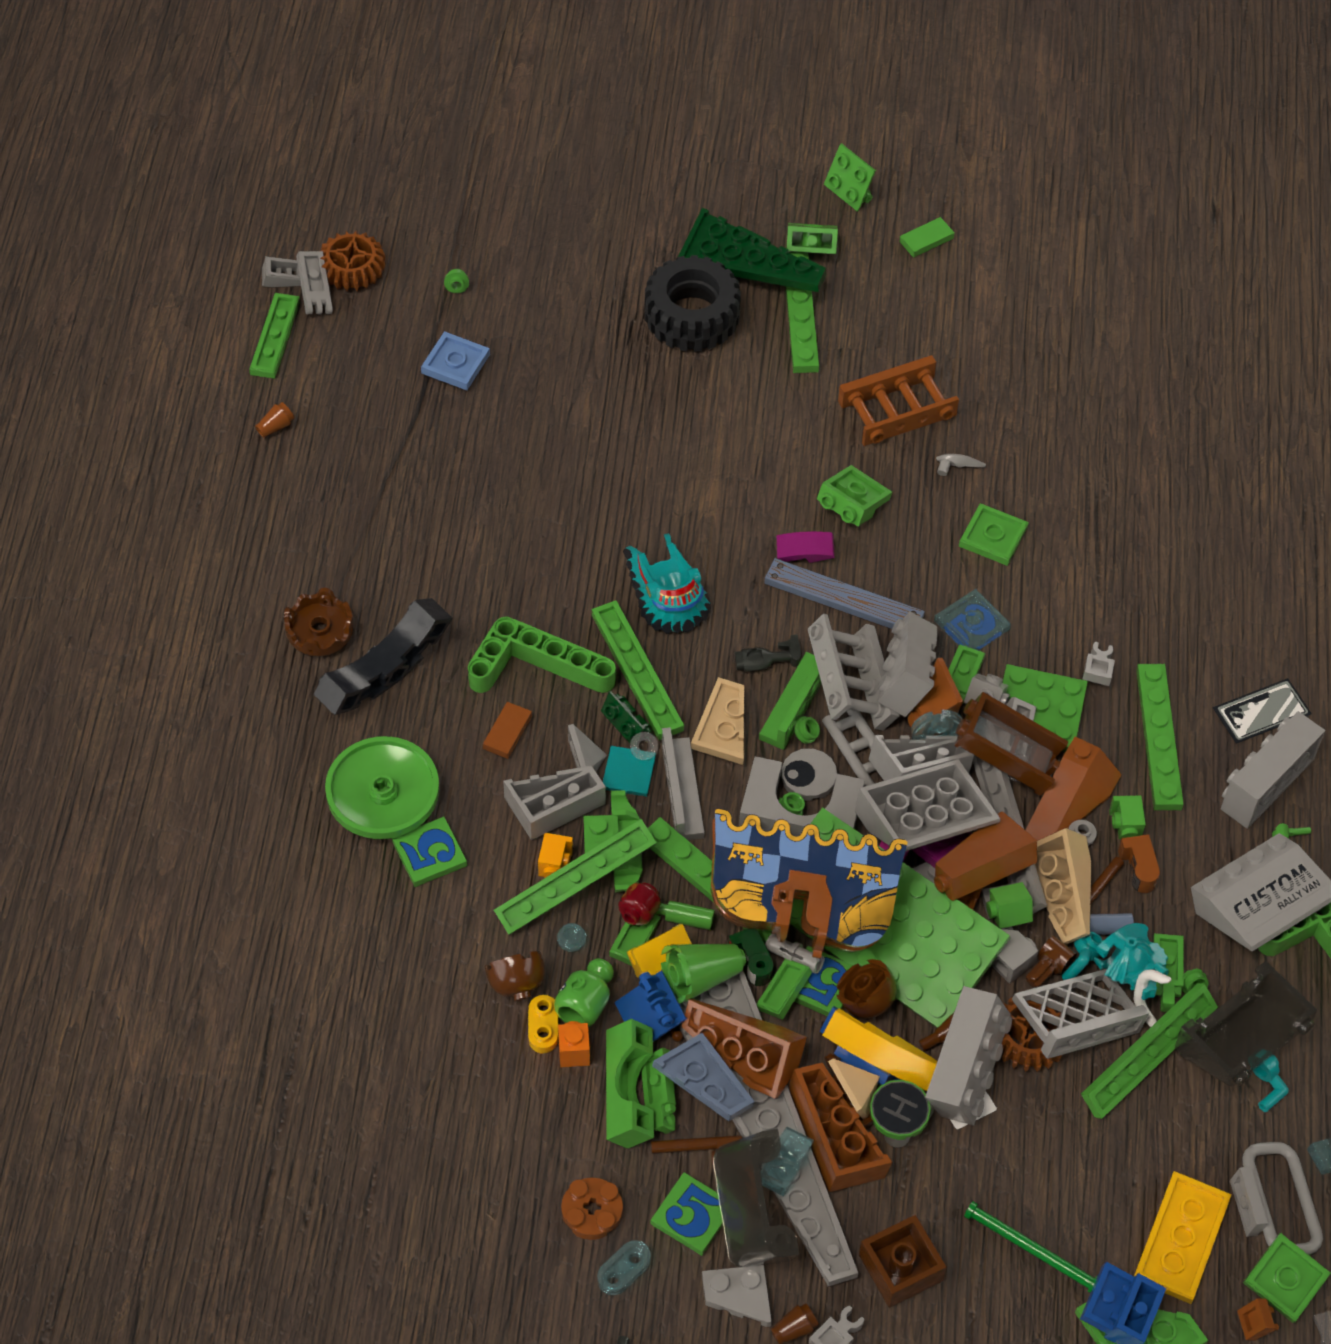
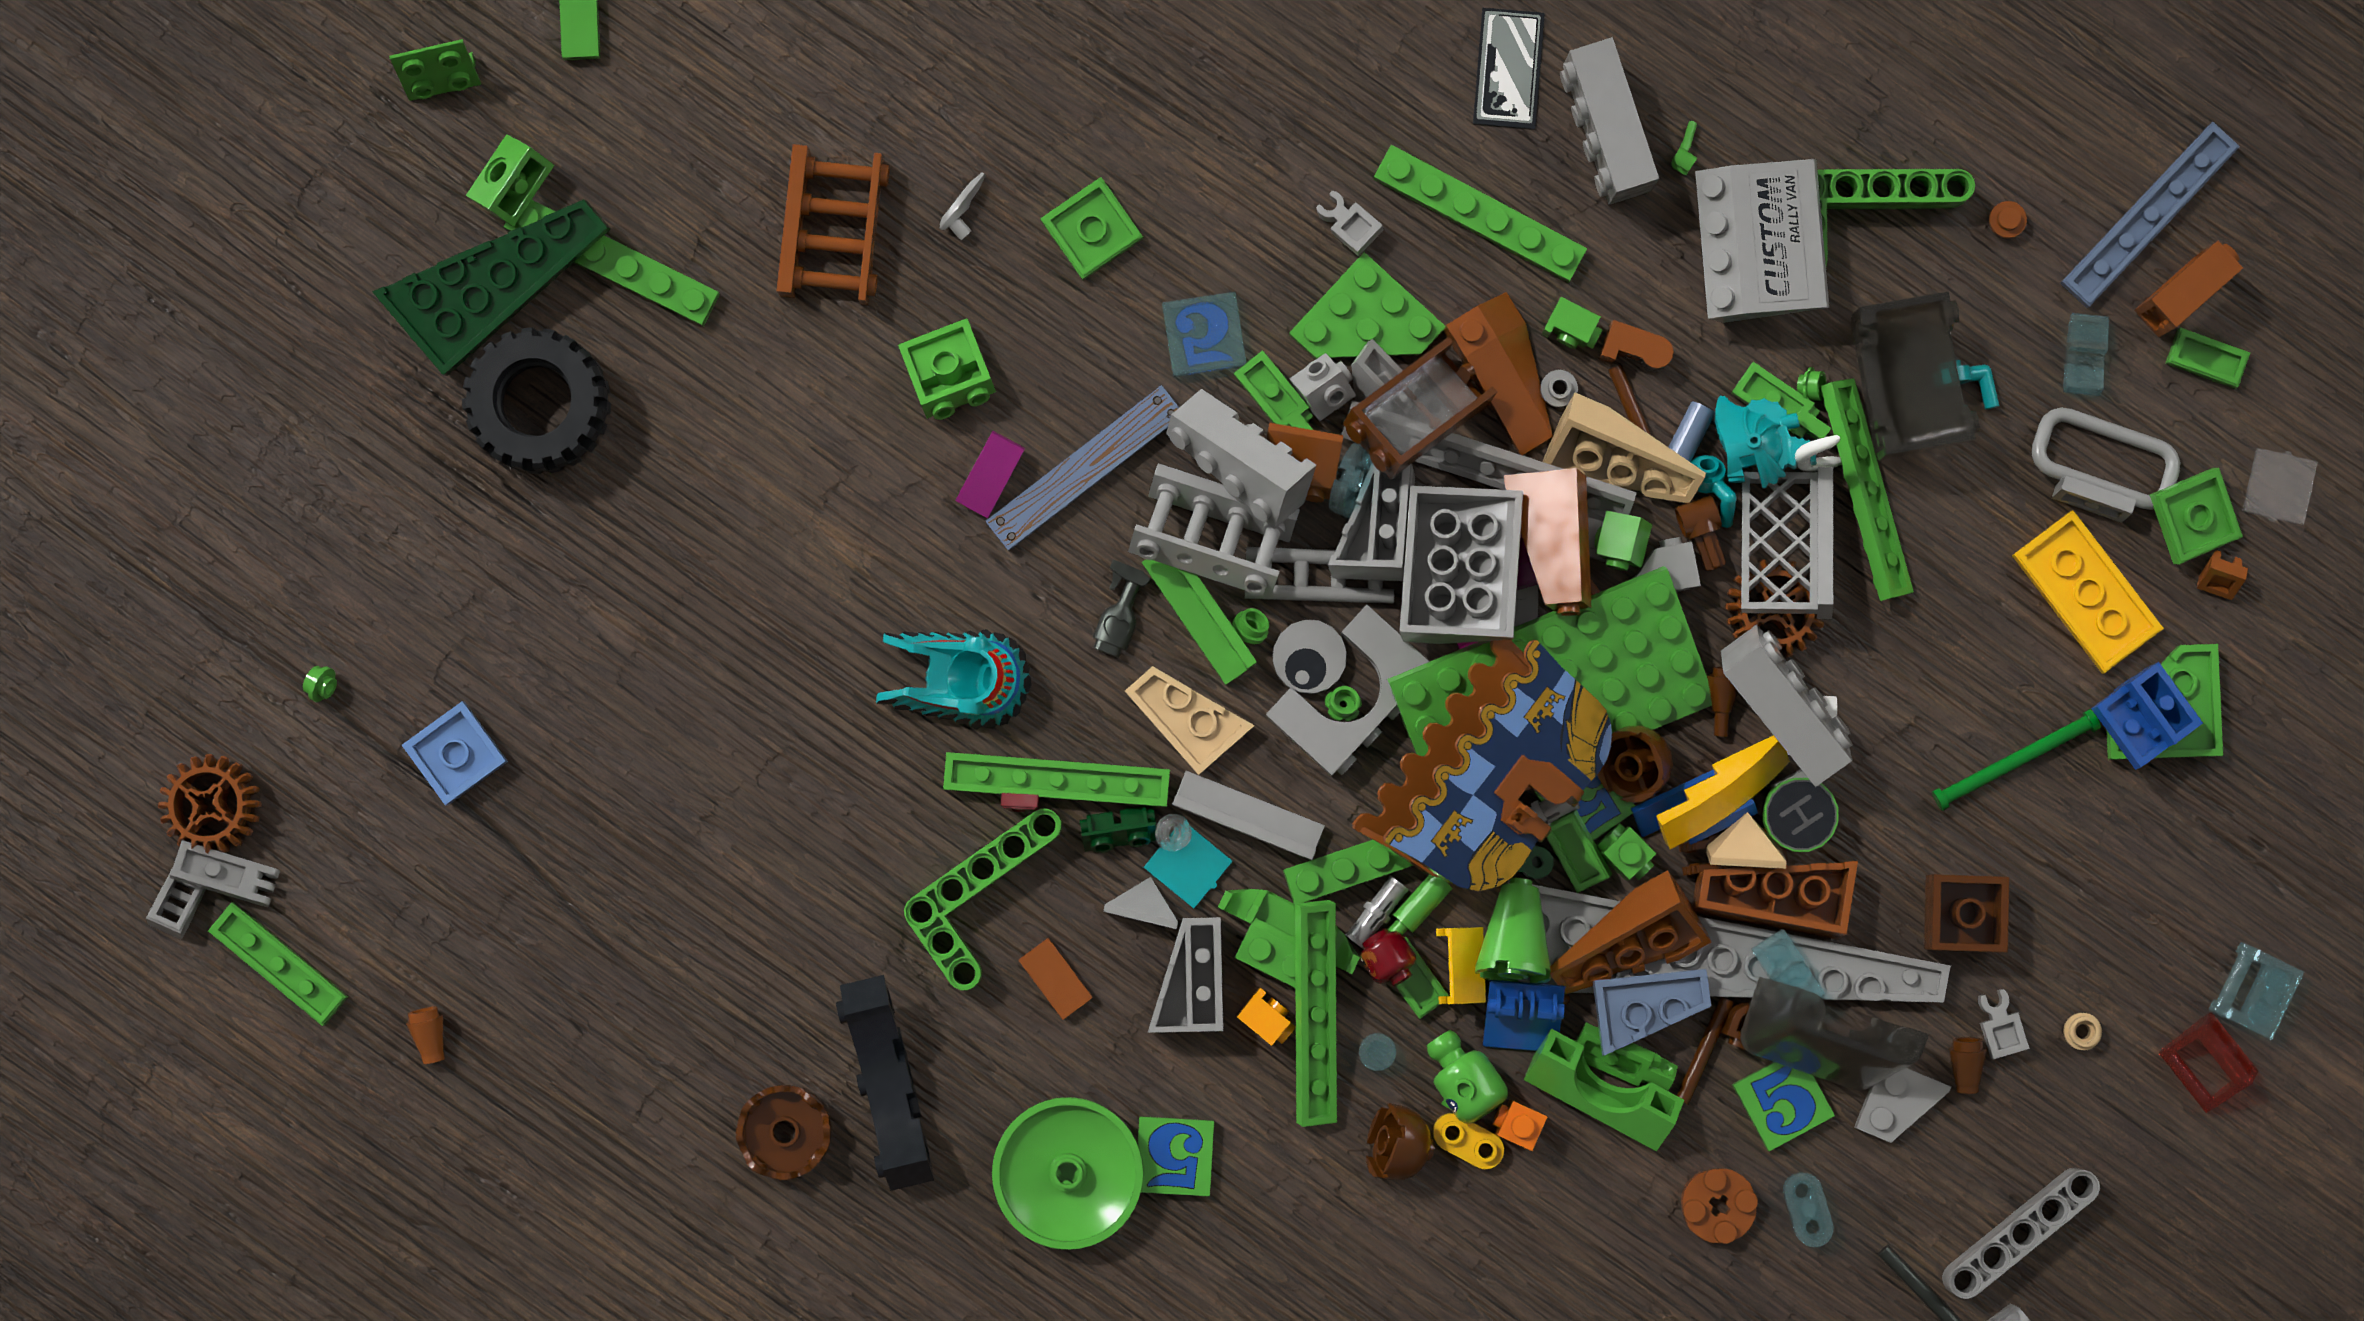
camera: 60 degrees left, 30 degrees up
(609, 649) = (1019, 802): none -> dark red tile
(685, 895) = (1377, 911): none -> light grey pin
(803, 1017) = (1626, 852): none -> bright green brick

